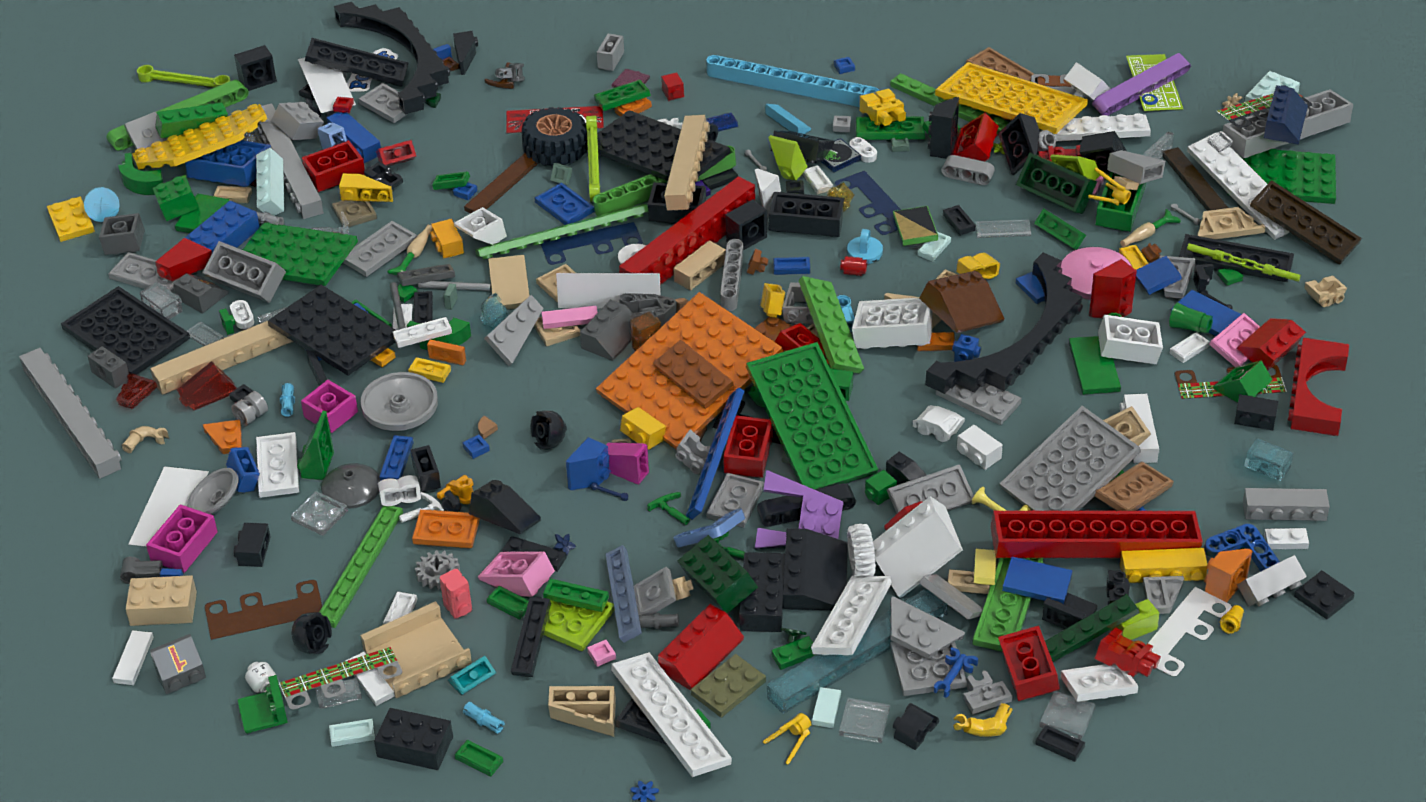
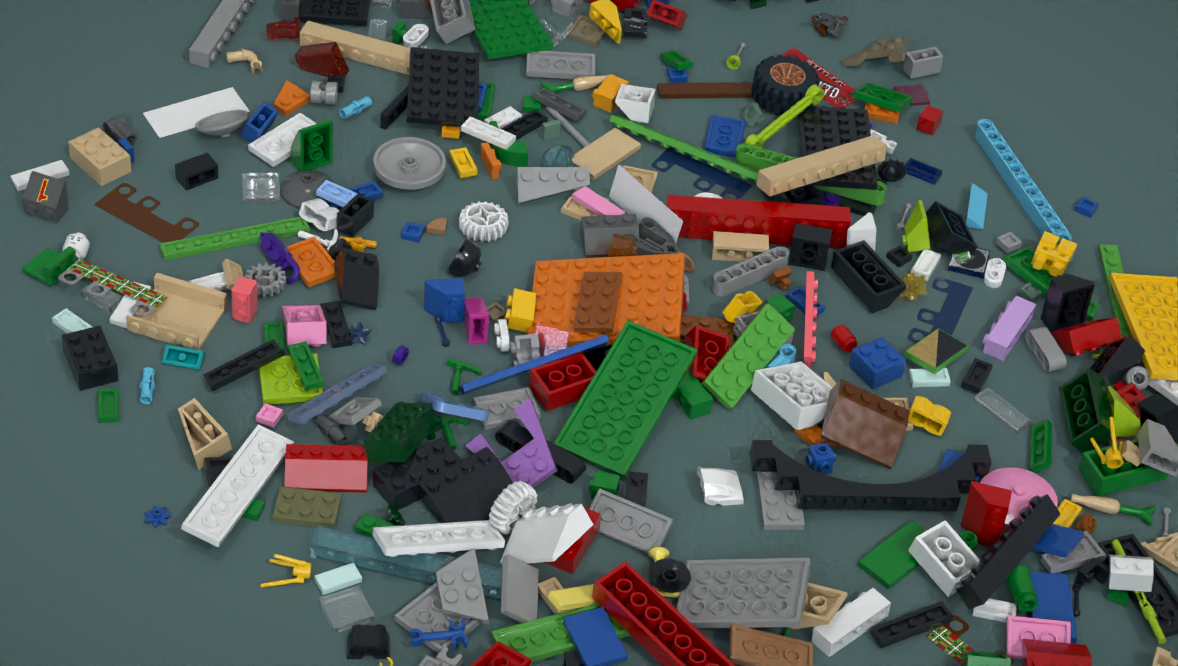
camera: 45 degrees right, 0 degrees up
(182, 538) = (164, 131): dark pink brick -> none
(311, 632) = (138, 248): black cylinder -> none
(331, 398) = (366, 130): dark pink brick -> none
(390, 466) = (335, 193): none -> light blue plate
(397, 305) = (506, 106): flat silver bar -> none
(412, 588) = (232, 272): none -> tan tile
(416, 543) = (279, 254): none -> dark purple plate
(489, 148) = (735, 58): none -> lime hinge
(514, 395) = (483, 221): none -> white gear
(573, 61) = (892, 48): none -> dark tan wing
(615, 530) = (400, 355): none -> dark purple tile
(659, 456) = (502, 339): none -> white plate
(699, 425) = (551, 339): none -> clear pink piece
(786, 277) = (782, 305): none -> green brick
(818, 270) = (810, 314): none -> coral plate
(865, 247) = (872, 330): medium azure tile -> none
(898, 262) = (877, 362): none -> blue brick
(929, 175) = (1008, 328): none -> lavender brick
(979, 447) = (716, 525): white brick -> none
(1010, 499) = (669, 575): none -> black dish
(1160, 305) = (1007, 551): none -> black brick
(1169, 398) = (911, 624): none -> black plate
(1231, 252) = (1130, 573): none -> white slope

